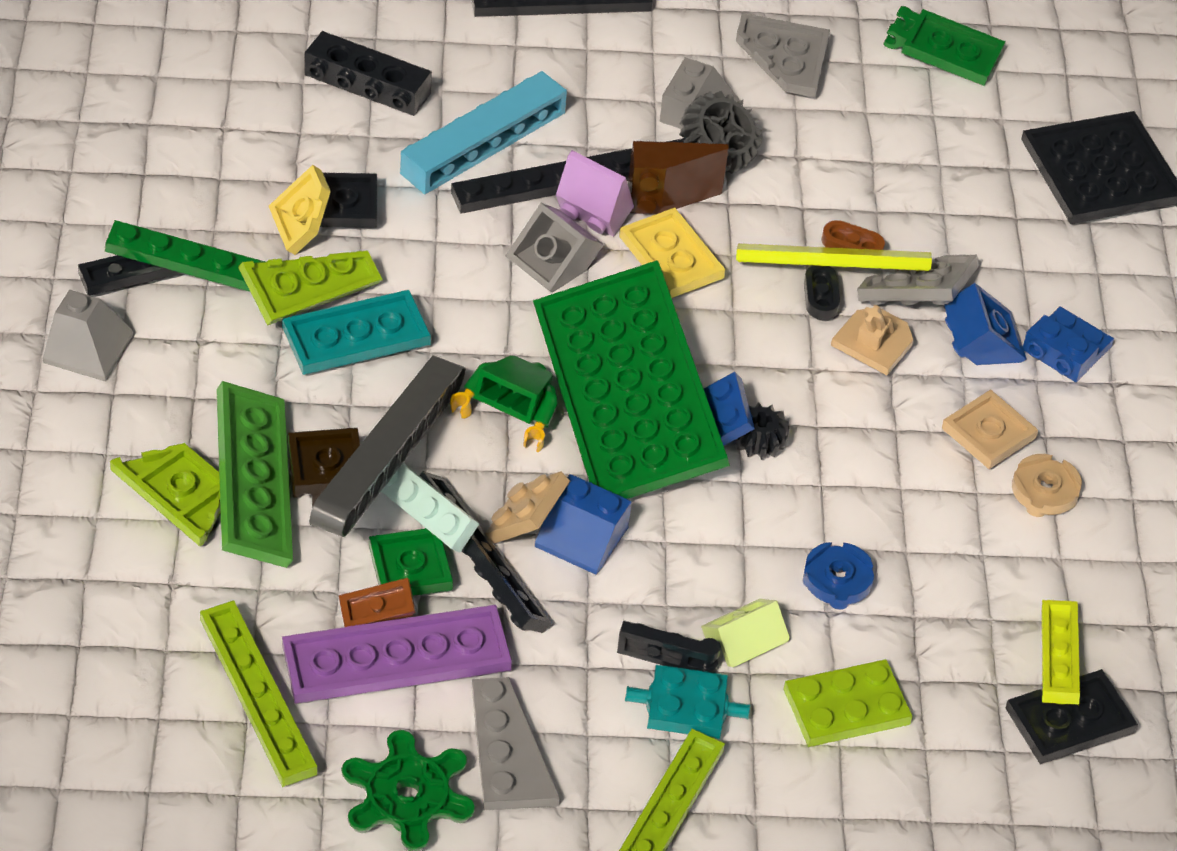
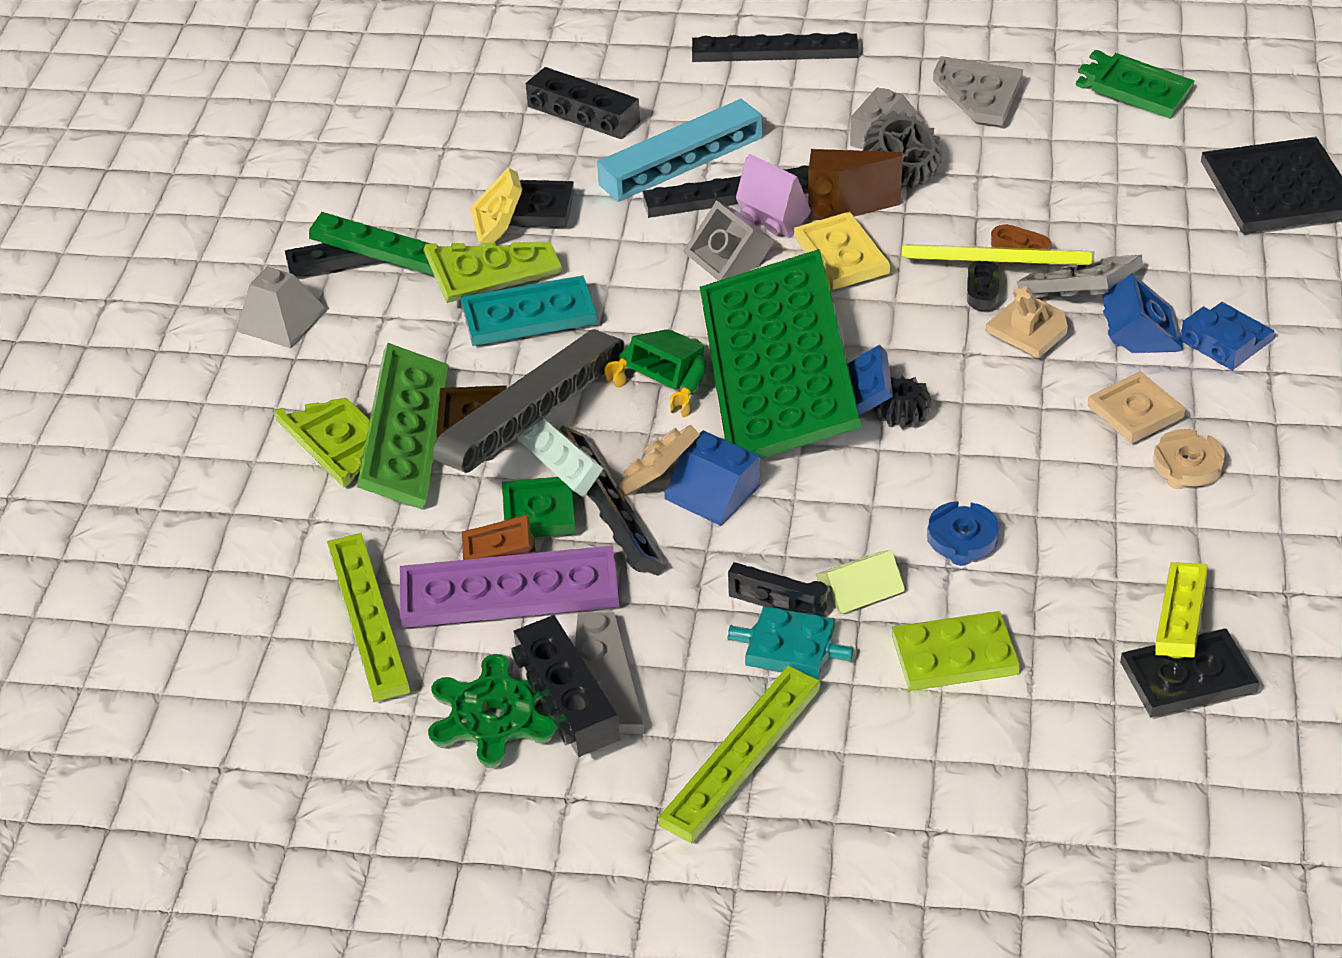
camera: 15 degrees right, 5 degrees down
(478, 744) = (566, 686): none -> black brick

